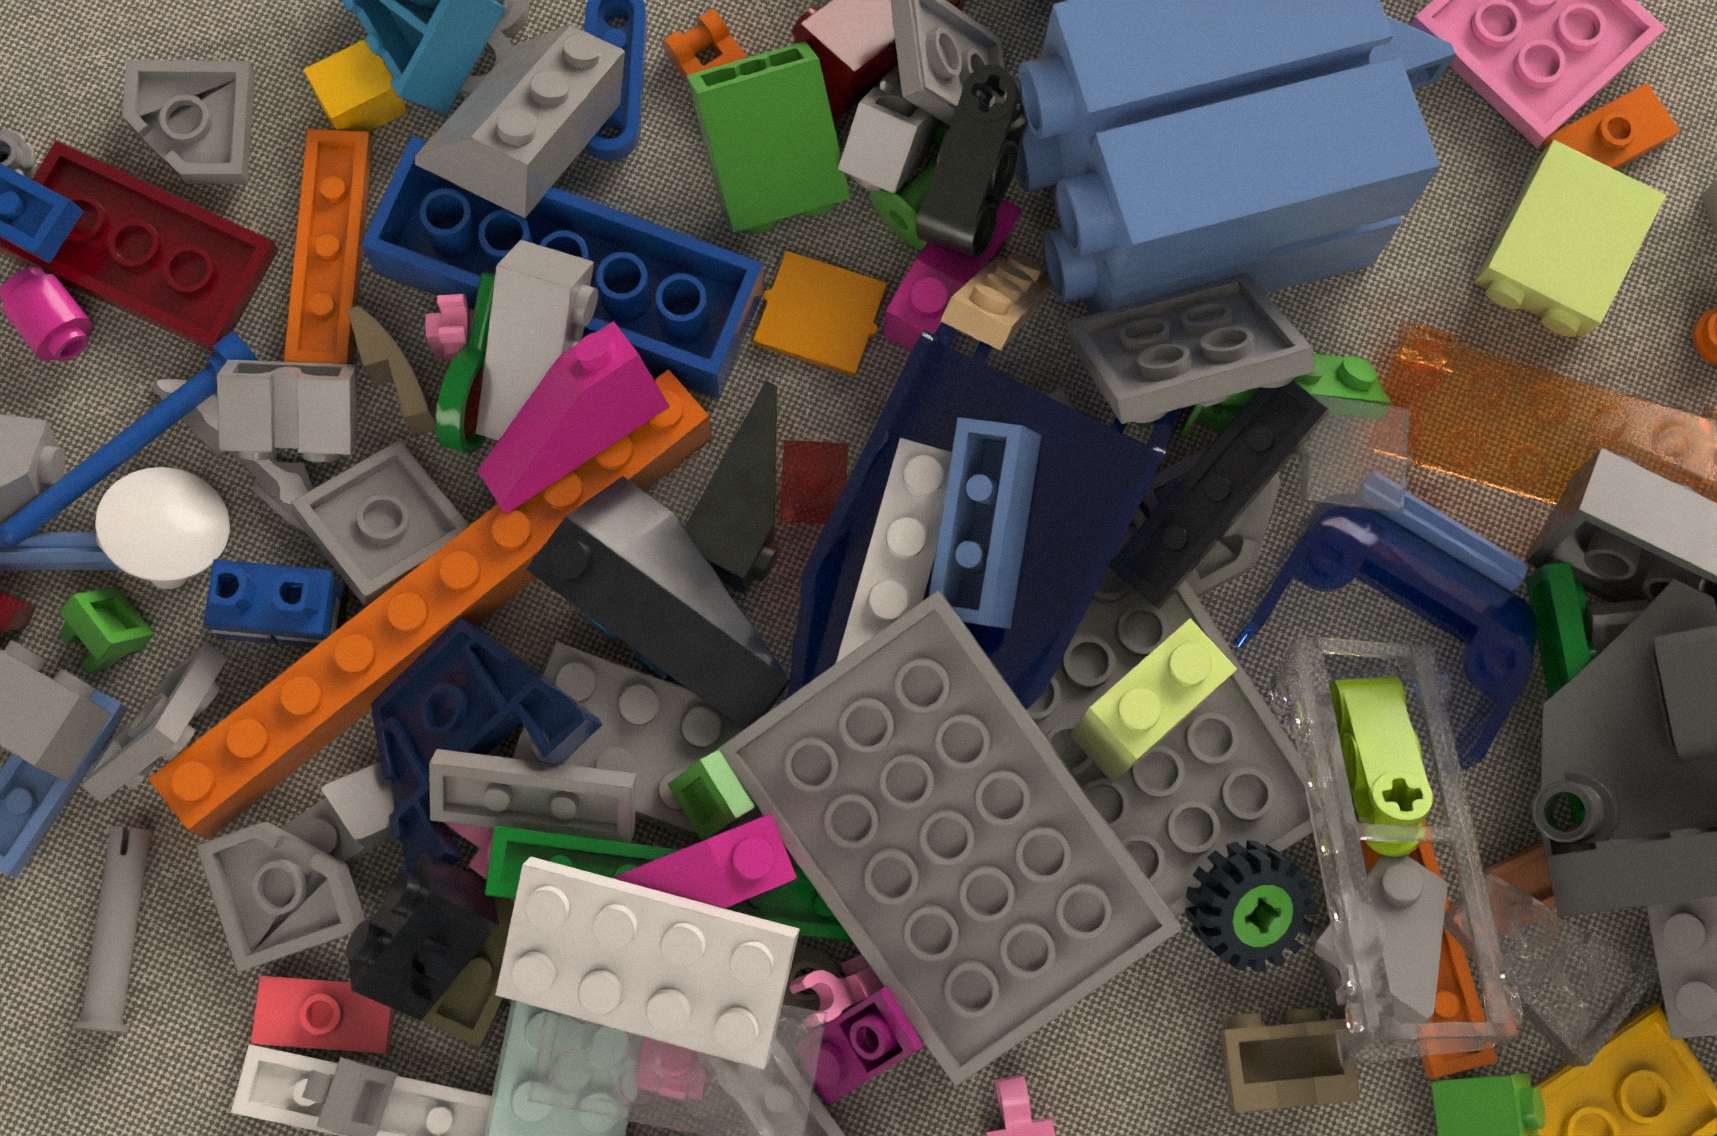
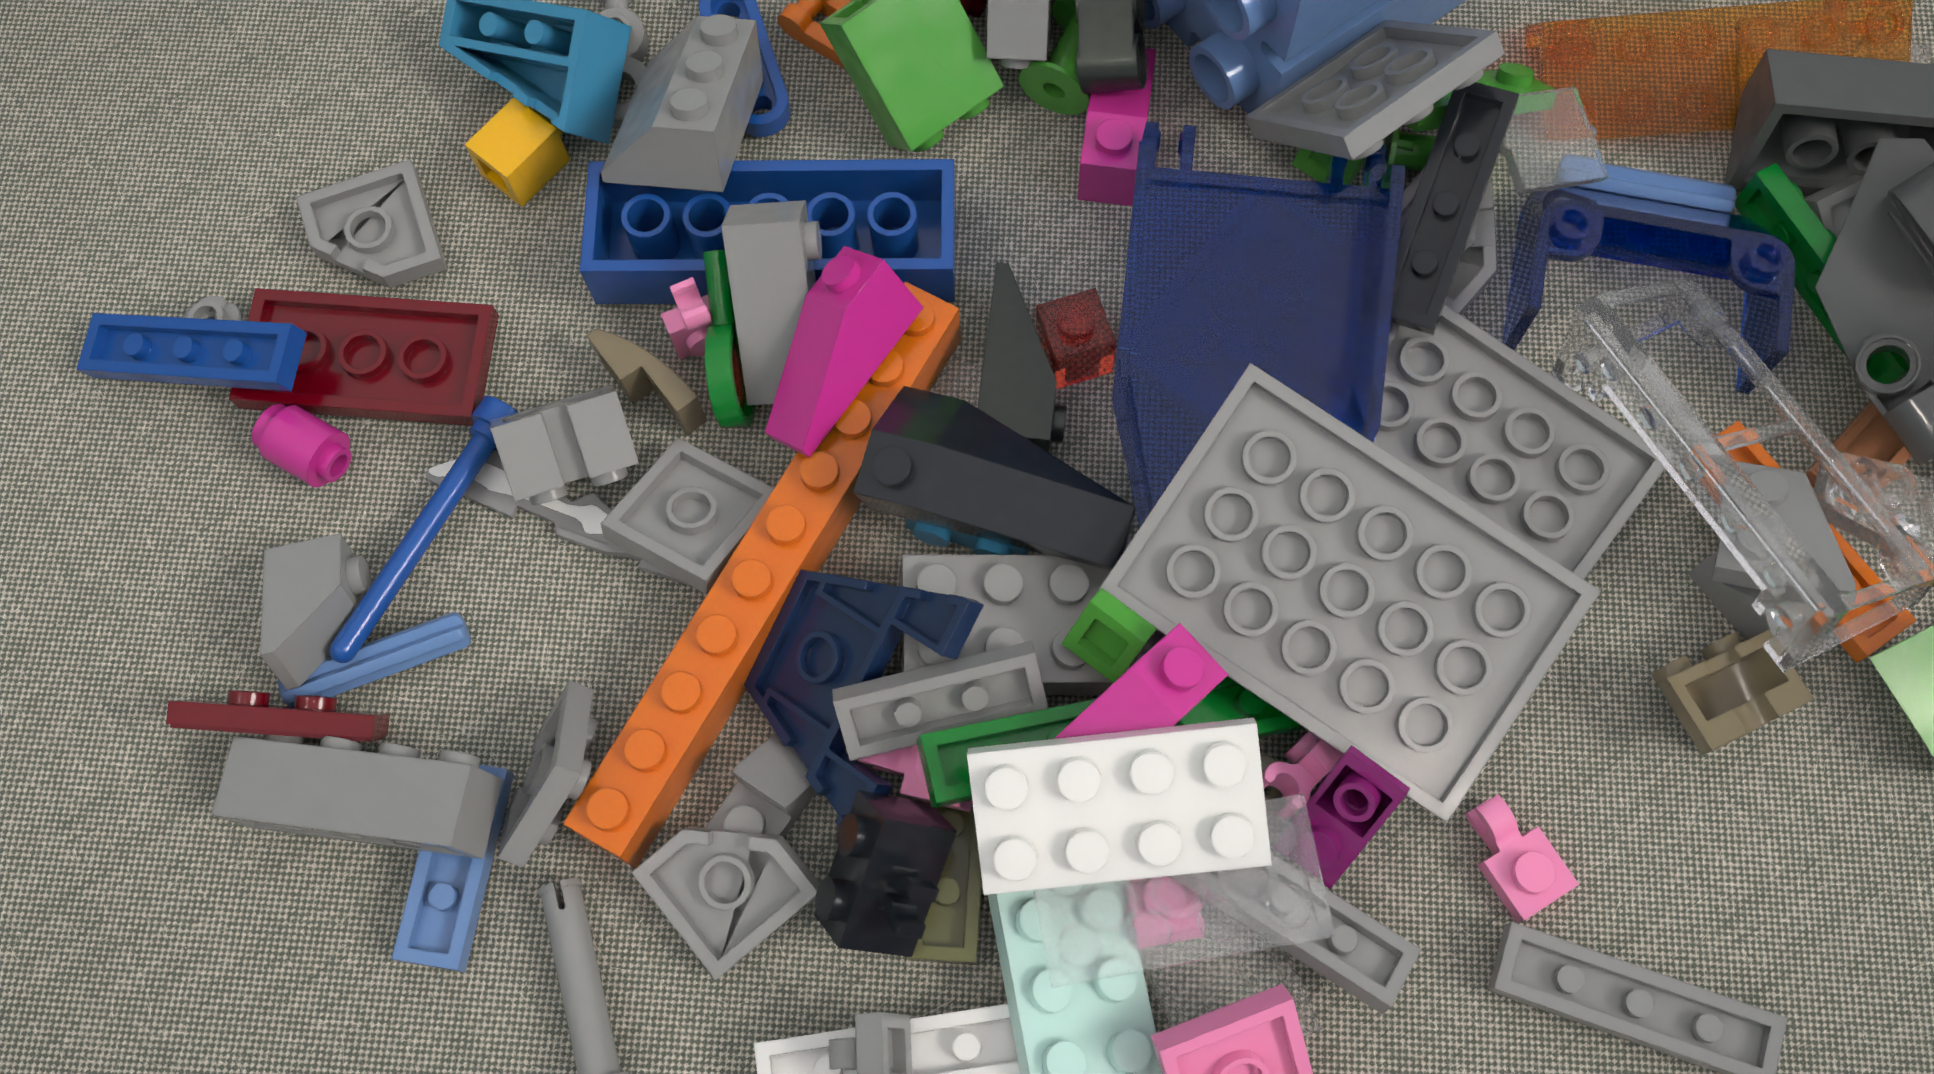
camera: 10 degrees left, 5 degrees down
(105, 626) = (465, 703): bright green tile -> none
(162, 525) = (484, 593): white dish -> none
(274, 603) = (622, 617): blue hips -> none
(320, 1016) = (811, 992): coral plate -> none
(328, 246) = (544, 293): orange plate -> none
(820, 313) = (1014, 199): light orange piece -> none
(901, 543) = (1184, 351): white plate -> none
(985, 519) = (1254, 291): medium blue brick -> none
(998, 300) = (1184, 109): tan plate -> none
(1152, 700) = (1479, 401): yellowish green brick -> none
(1233, 892) = (1636, 561): black wheel -> none
(1381, 756) = (1707, 384): lime piece -> none

